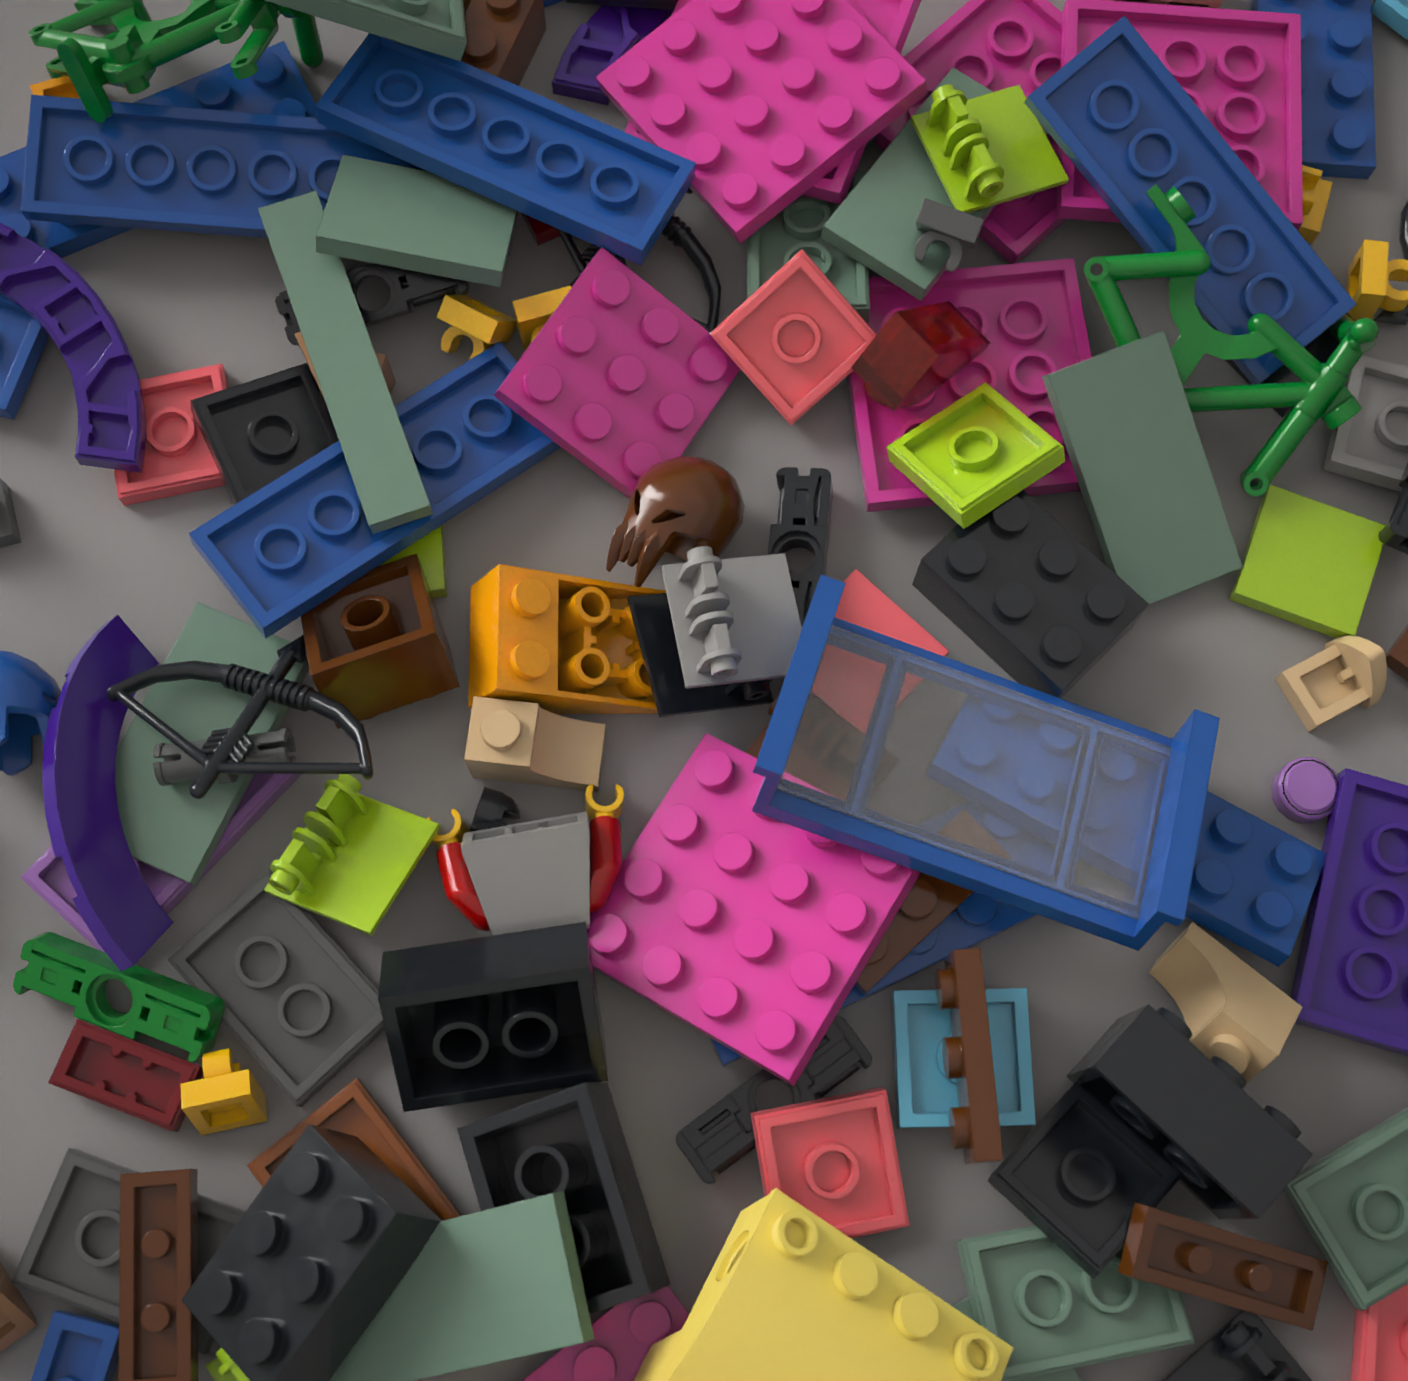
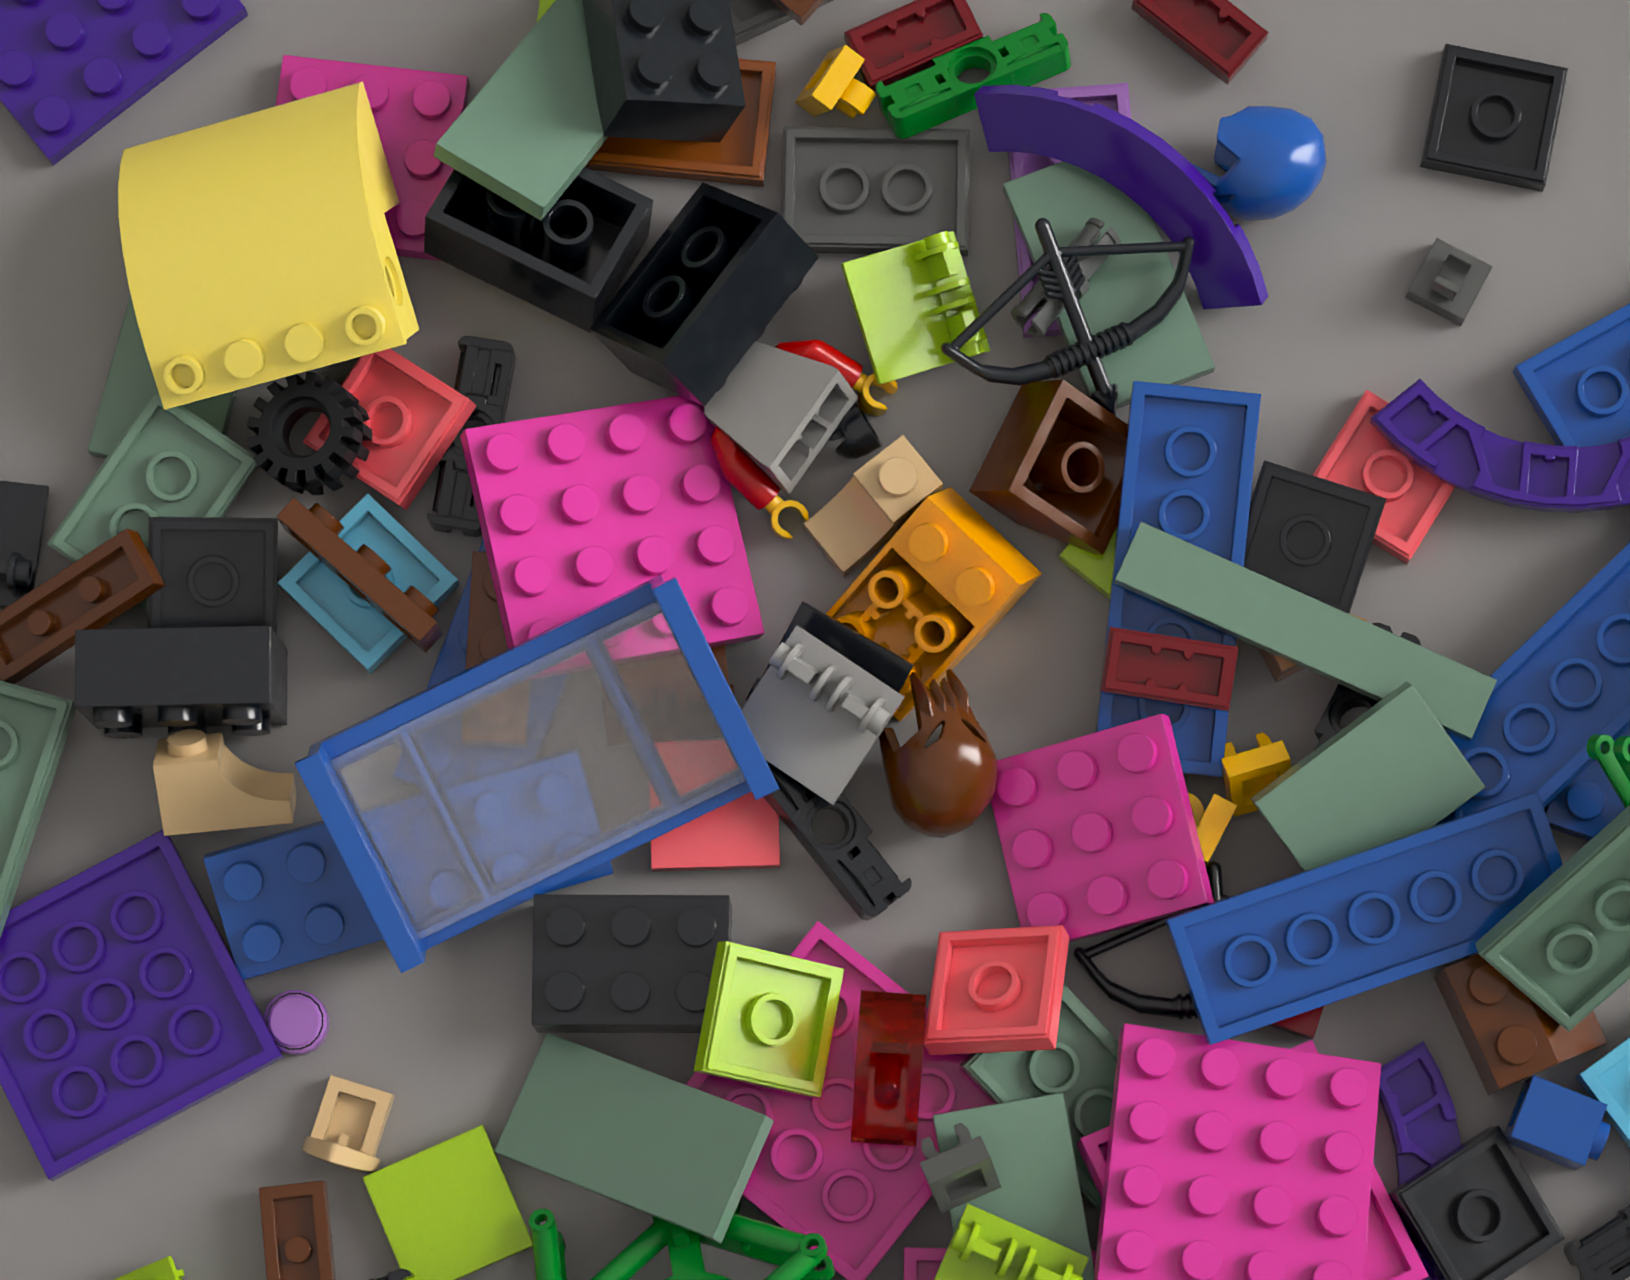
camera: 140 degrees right, 5 degrees up
(460, 422) = (1168, 669): none -> dark red plate
(945, 1205) = (280, 416): none -> black tyre

